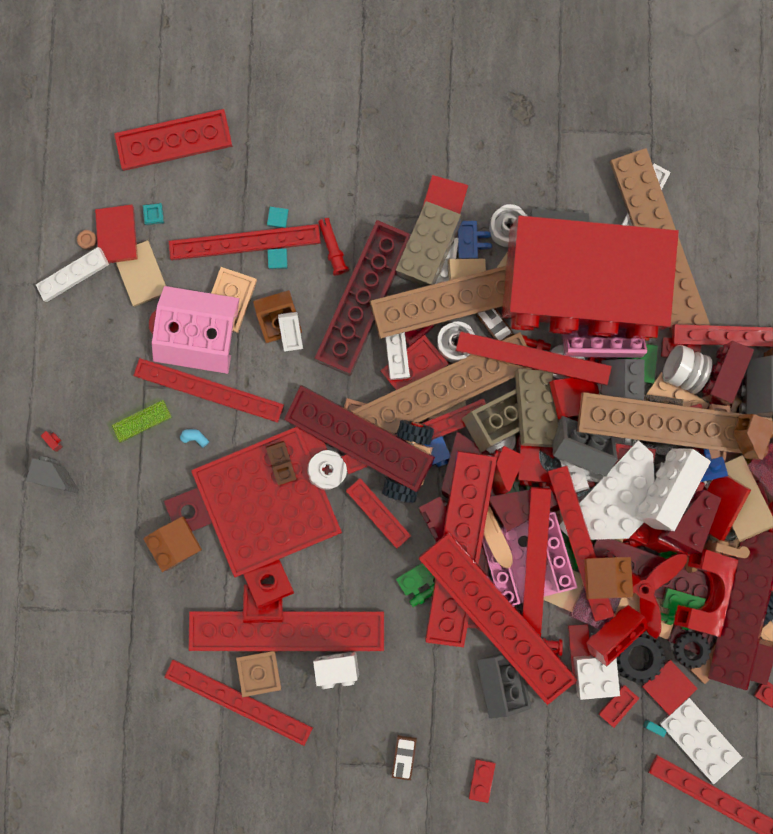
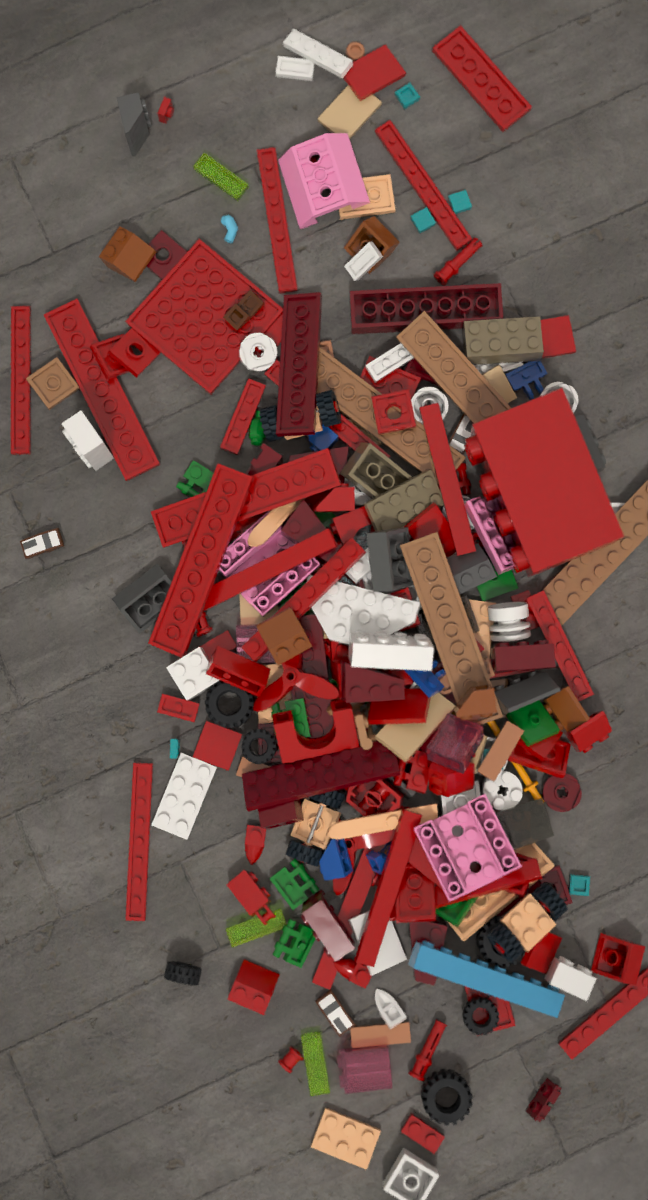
camera: 60 degrees right, 0 degrees up
(73, 302) = (294, 68): none -> white tile
(397, 507) = (256, 432): none -> green plant
(458, 366) = (398, 399): none -> red piece
(482, 780) = (55, 620): red plate -> none

